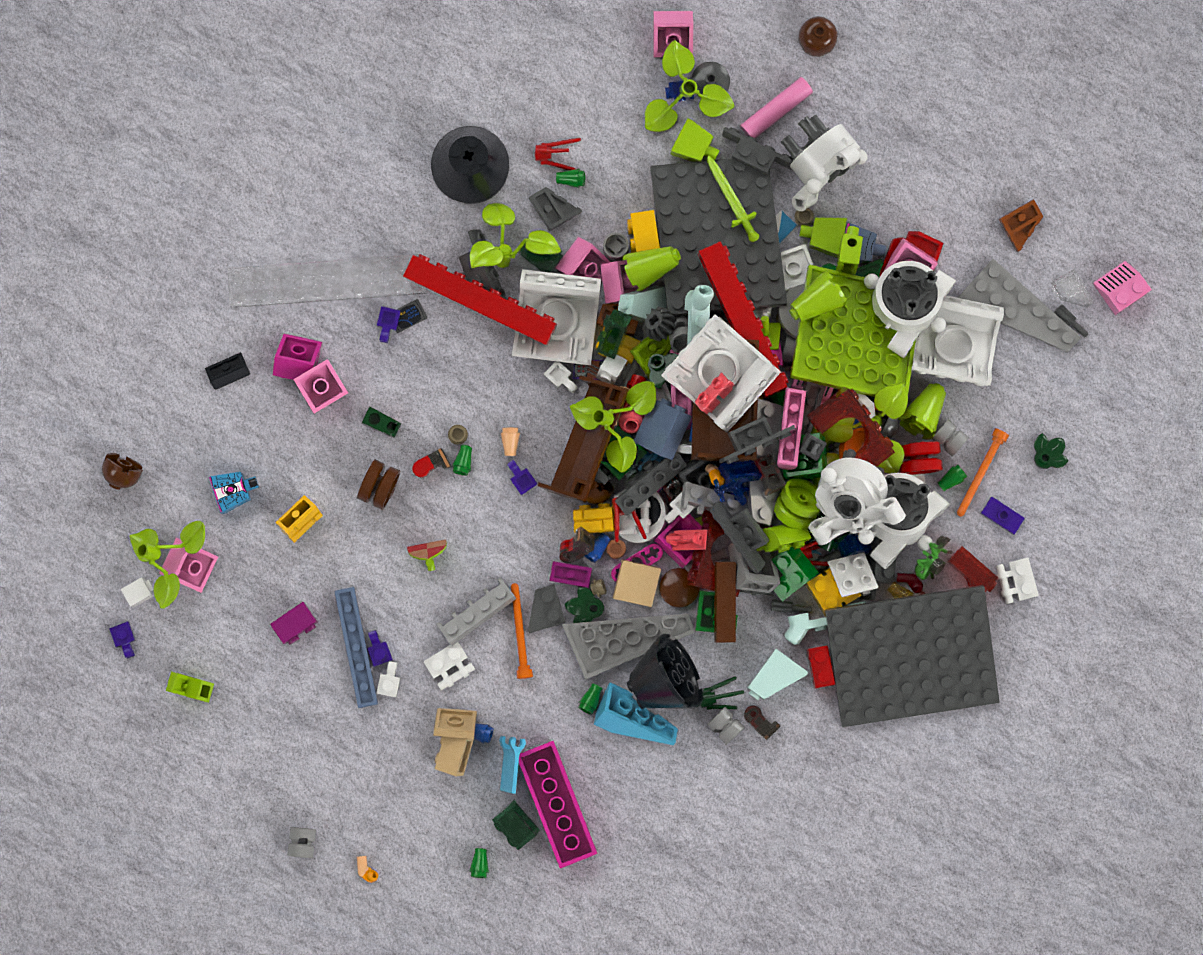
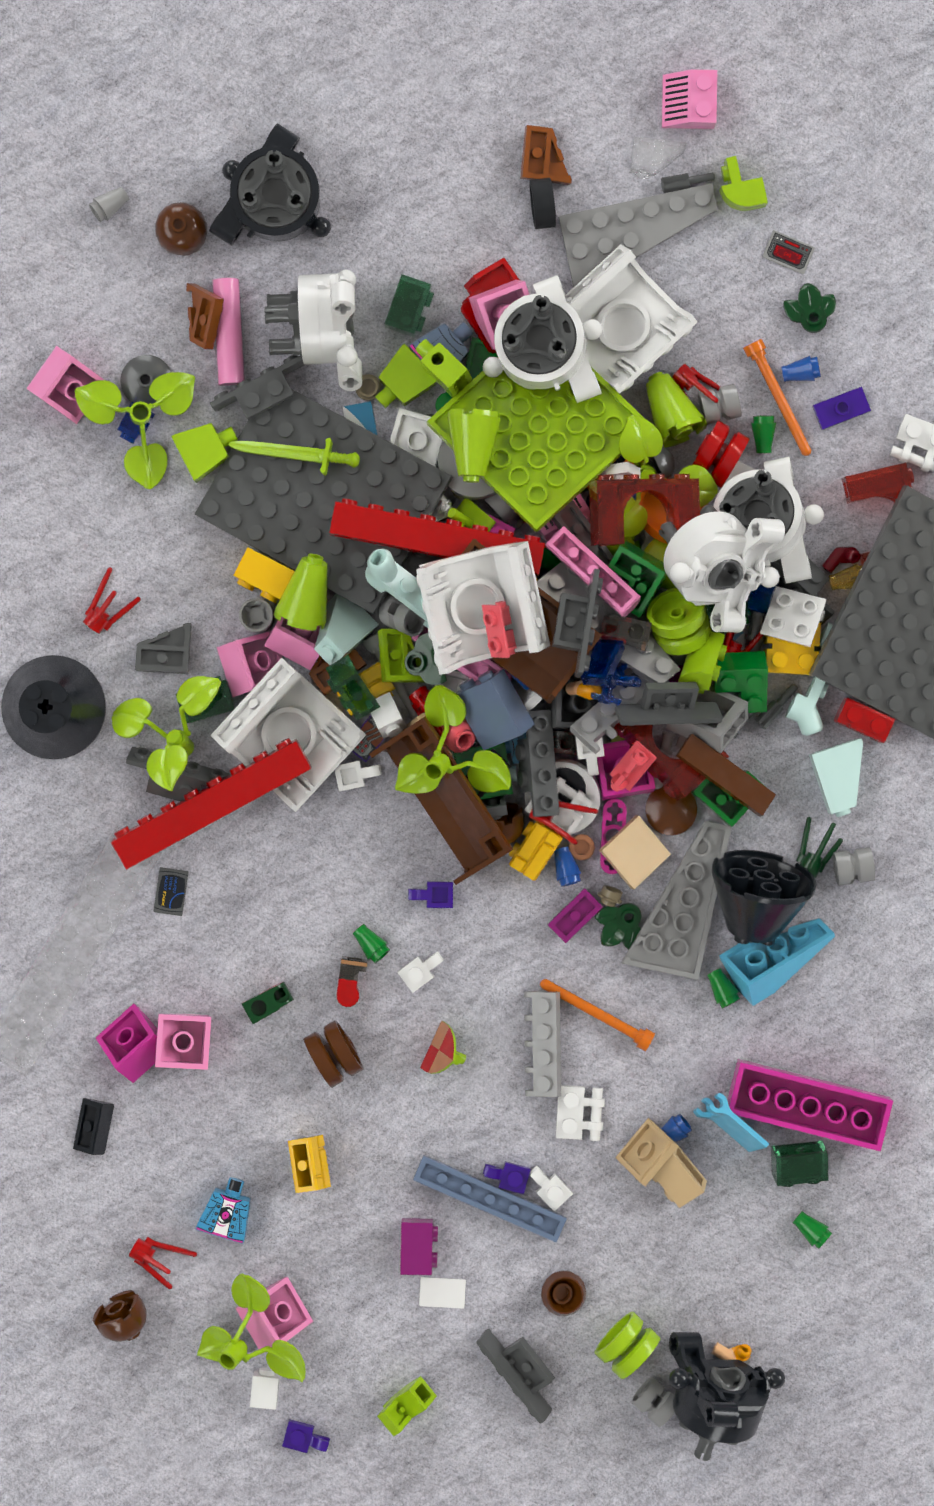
camera: 50 degrees left, 5 degrees up
(170, 457) = (143, 1255): none -> red plant
(262, 743) = (521, 1370): none -> dark grey bracket
(275, 661) = (442, 1292): none -> white sticker
(325, 797) = (627, 1345): none -> lime wheel
(329, 736) = (563, 1293): none -> reddish brown hat
(333, 876) = (717, 1397): none -> black piece
(388, 320) = (161, 917): dark purple plate -> none
(457, 434) = (338, 929): dark tan plate -> none
(466, 503) = (418, 973): none -> white plate
(510, 440) = (384, 877): light nougat cone -> none
(545, 610) = (593, 968): dark grey wing -> none
(571, 178) = (146, 608): green cone -> none
(577, 547) = (551, 888): clear smoke leg -> none
(659, 324) = (376, 631): dark grey gear -> none
(755, 718) = (865, 828): clear smoke leg -> none
(775, 87) = (203, 316): none -> dark orange wing
(812, 446) = (629, 564): dark grey slope -> none
(871, 205) = (408, 306): none -> clear green brick
(879, 74) = (271, 193): none -> piece
(932, 564) = (842, 520): animal -> none
(952, 408) = (688, 377): none -> red plant
(993, 242) = (542, 203): none -> black tyre
(1008, 474) = (802, 370): none -> blue cone
(1074, 414) = (788, 252): none -> sticker
(1087, 360) = (741, 194): none -> lime brick

